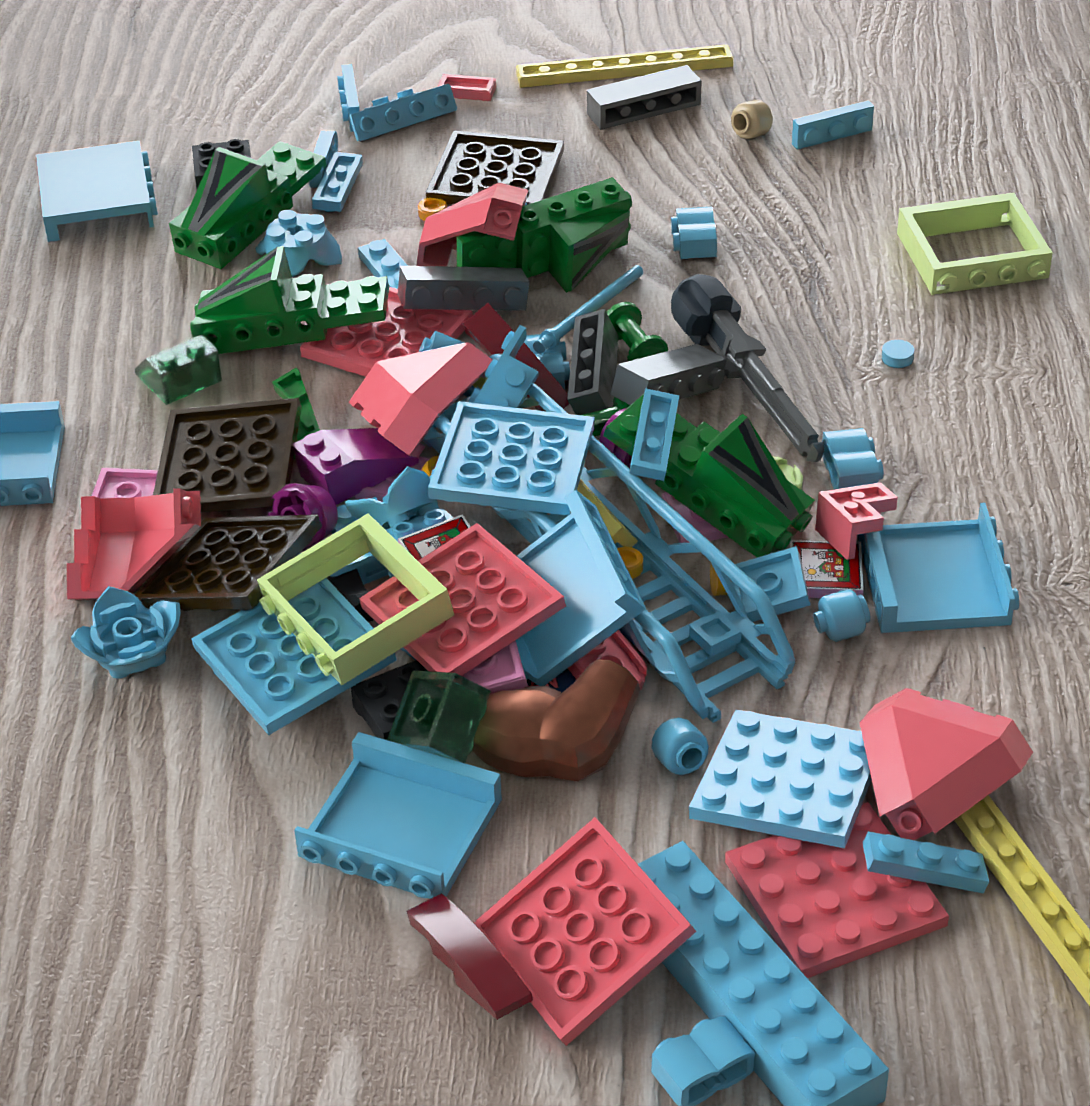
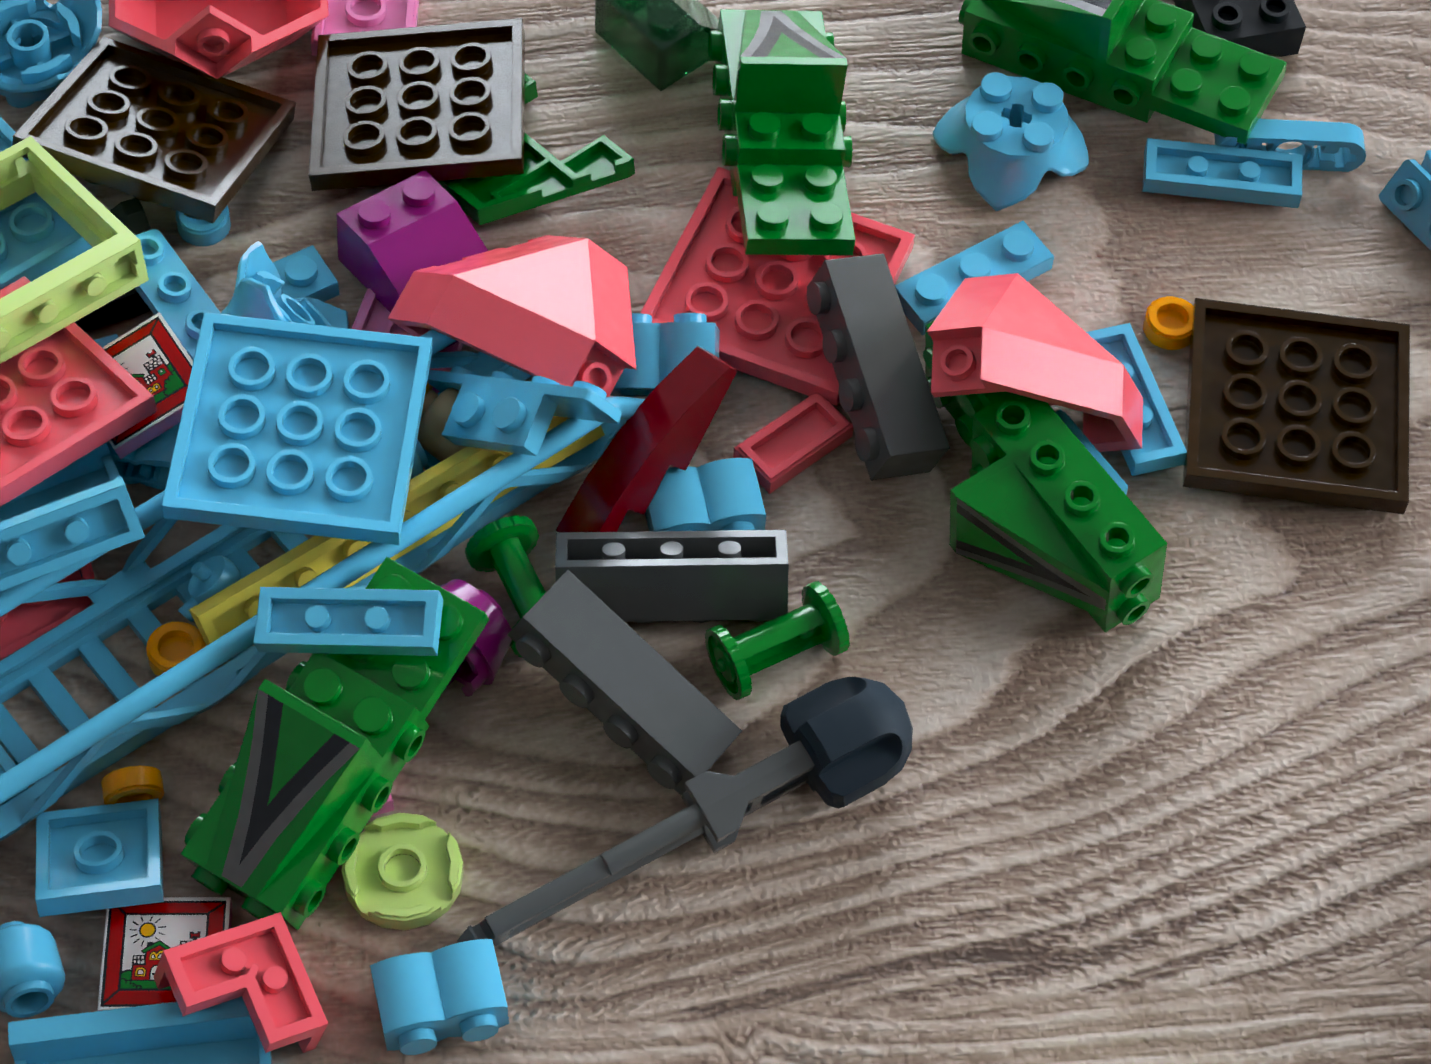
camera: 80 degrees right, 15 degrees up
(307, 500) = (274, 210): magenta cone -> none
(551, 337) = (722, 496): medium azure bar -> none
(694, 232) = (1134, 735): medium azure brick -> none

